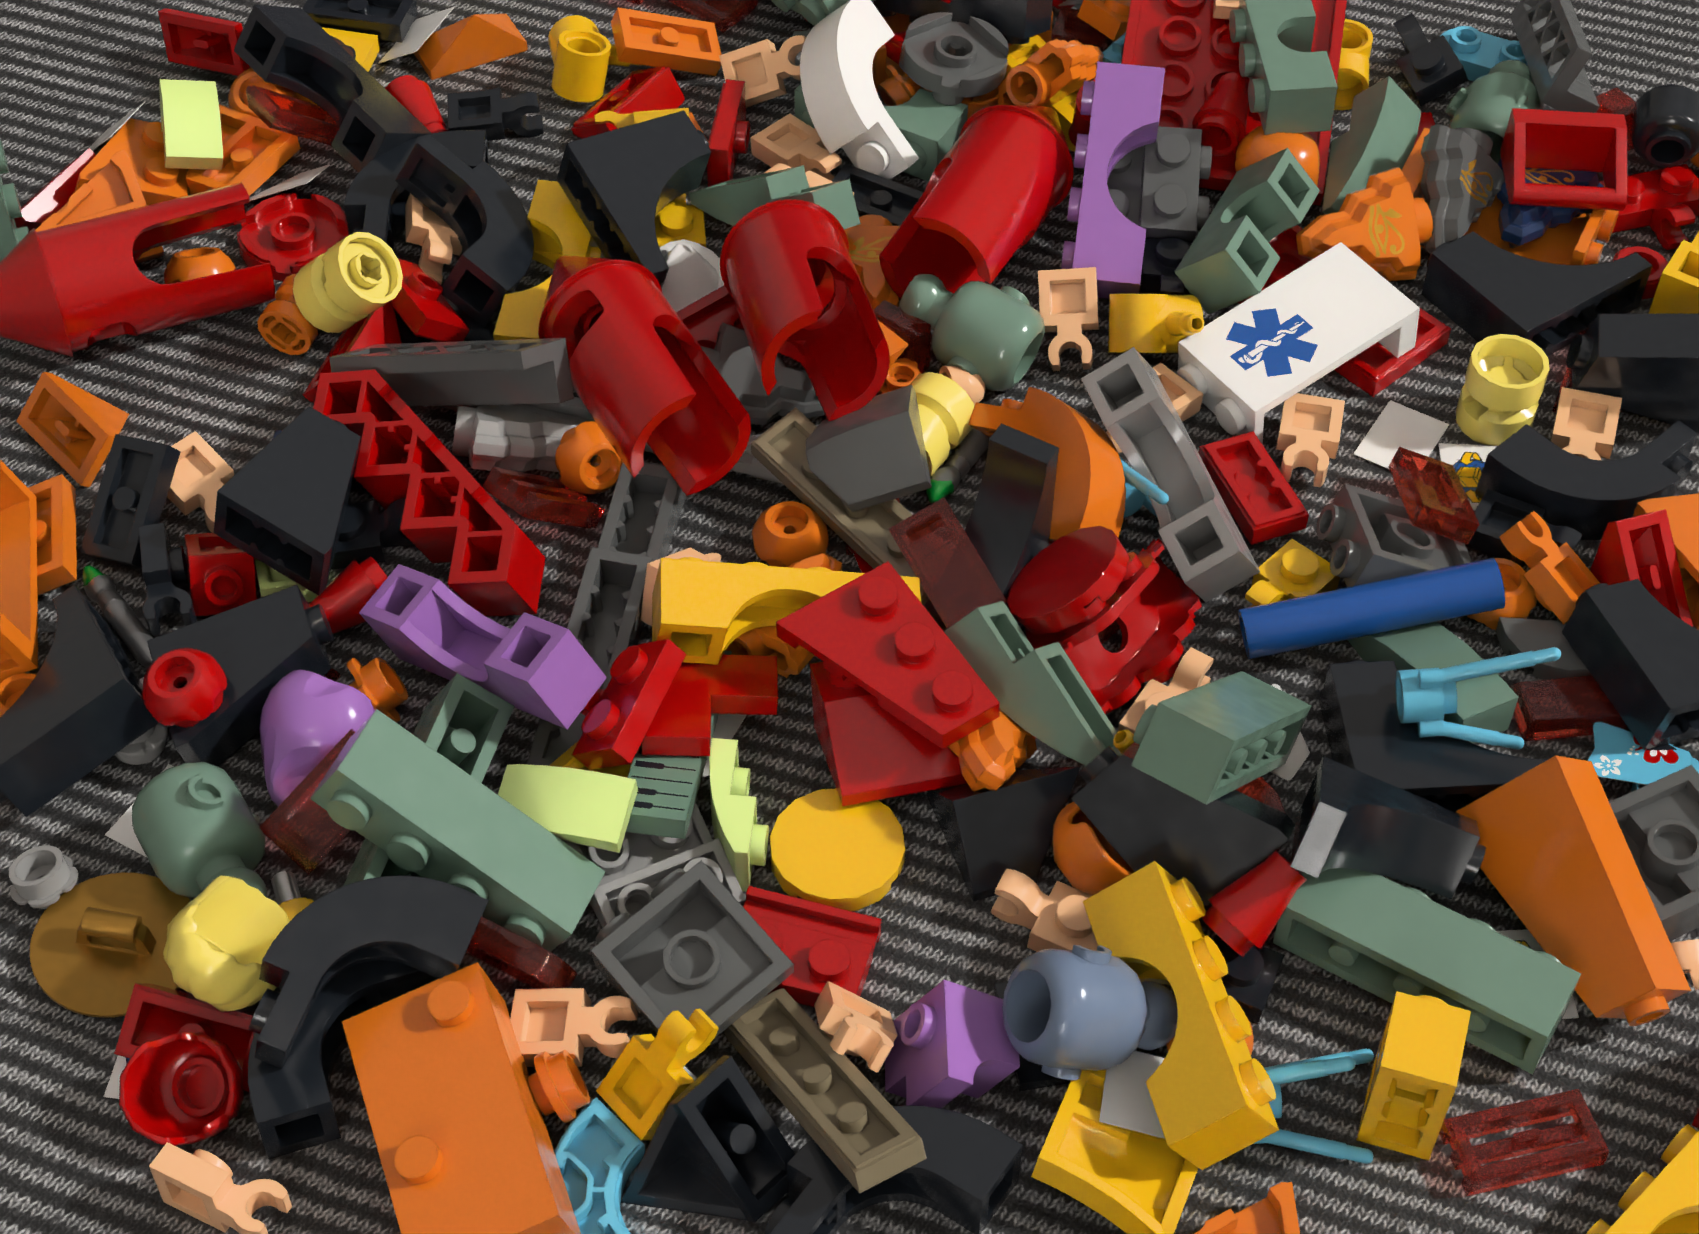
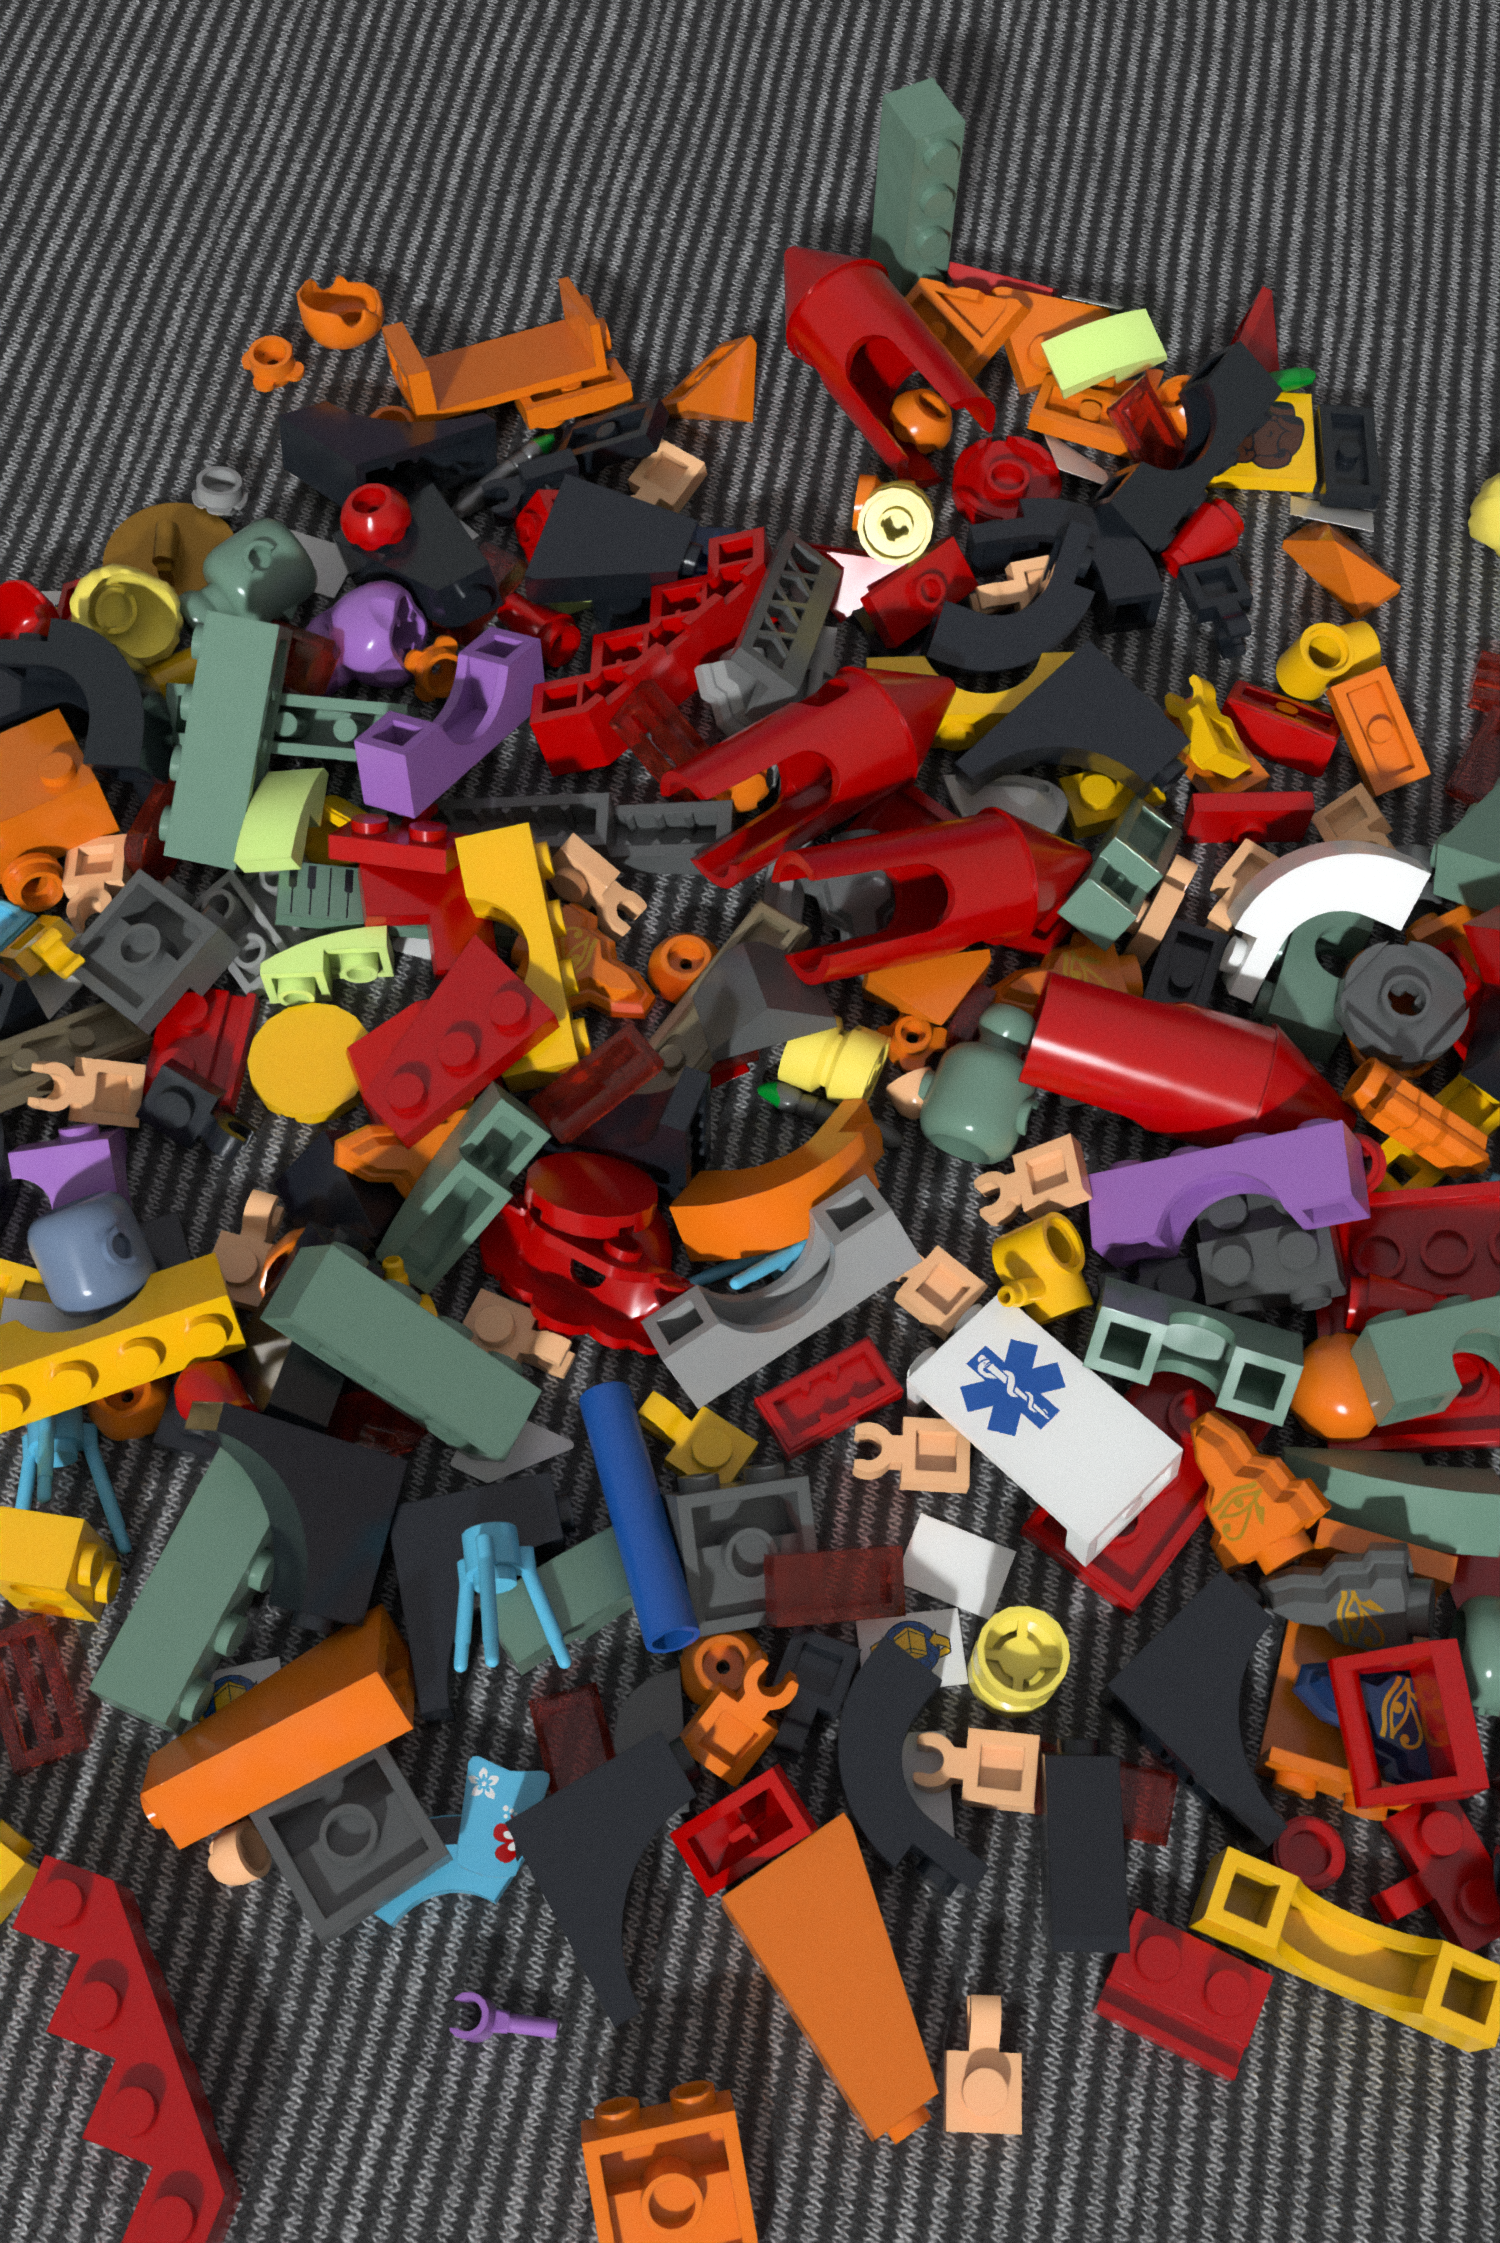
camera: 80 degrees right, 15 degrees up
(881, 947) = (188, 1109): none -> black plate

